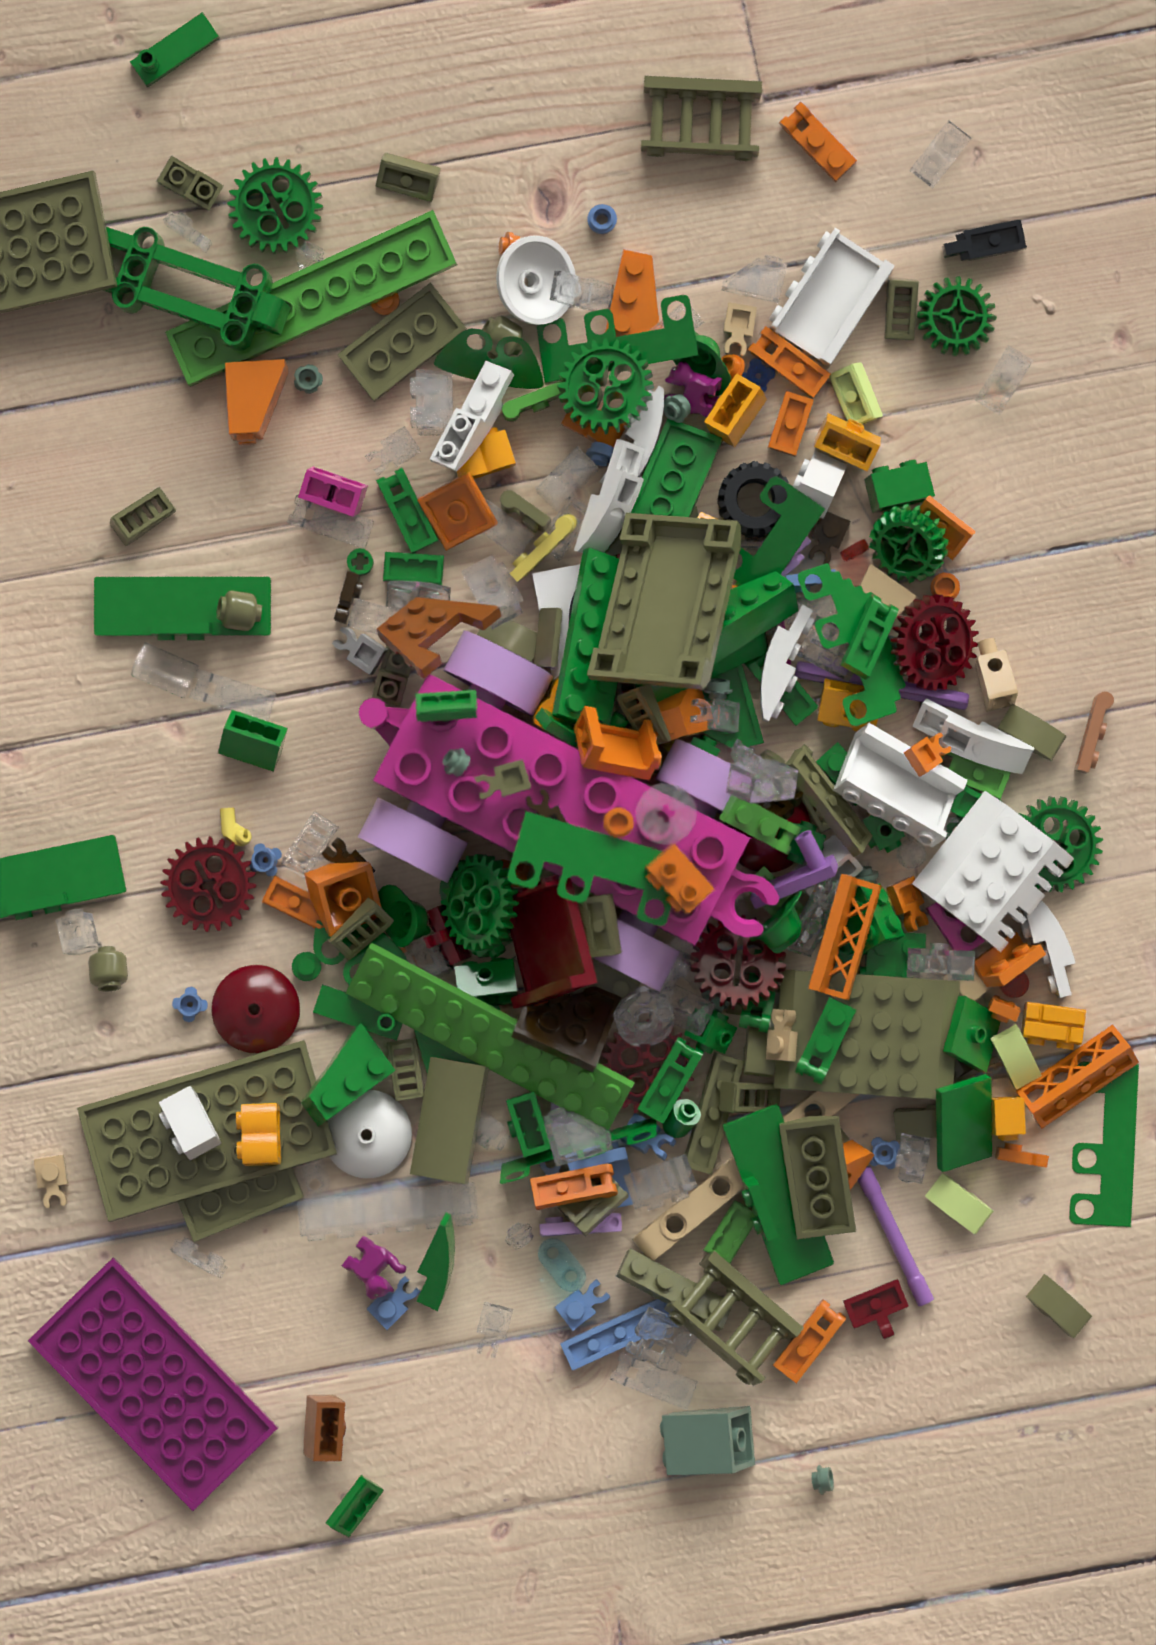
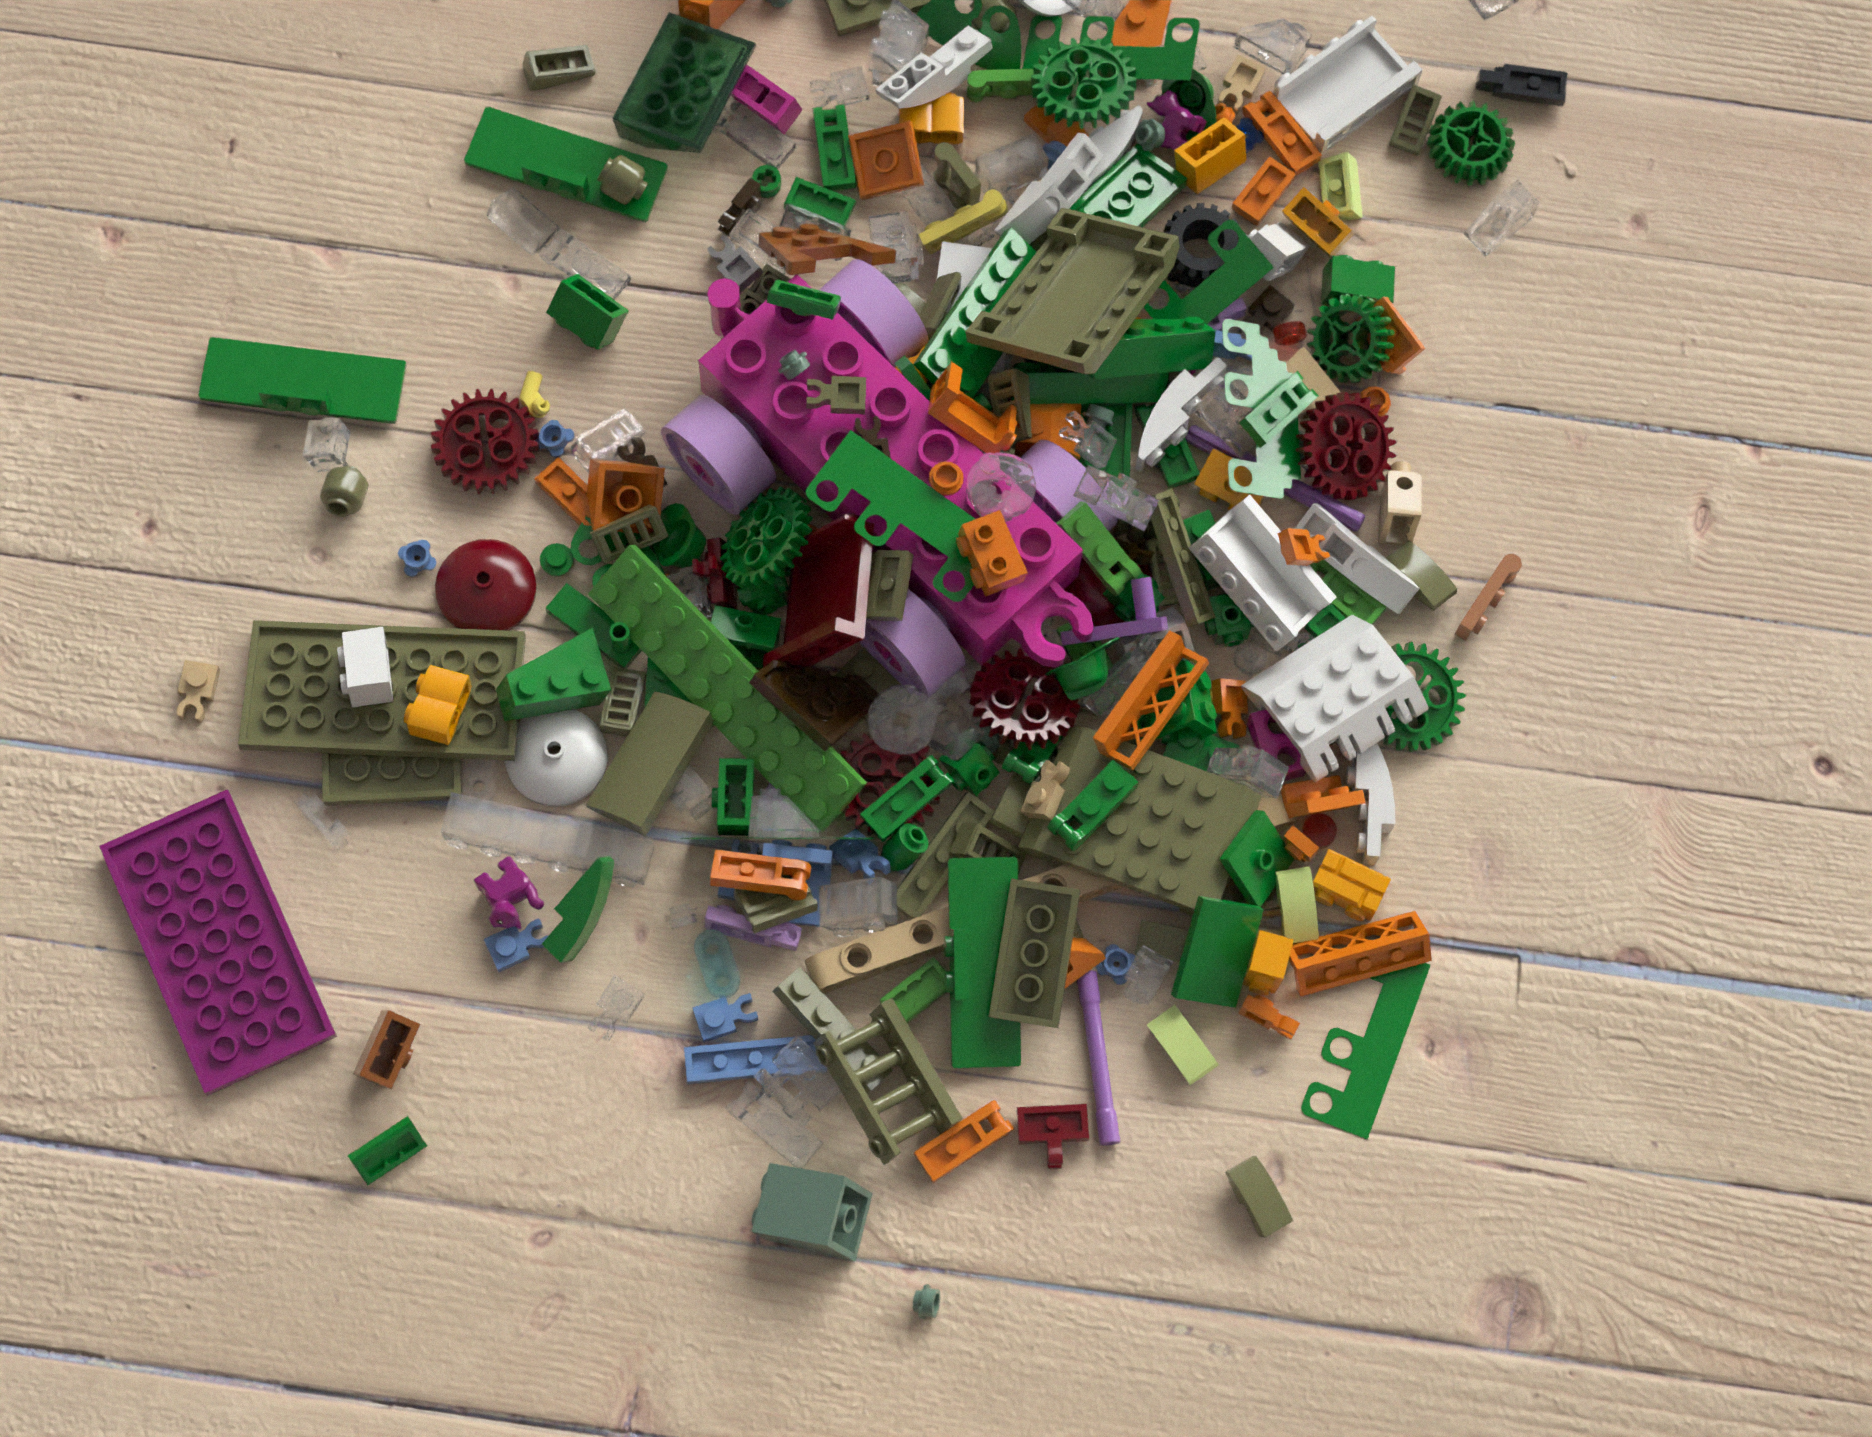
camera: 15 degrees right, 15 degrees down
(261, 506) = (682, 86): none -> clear green slope

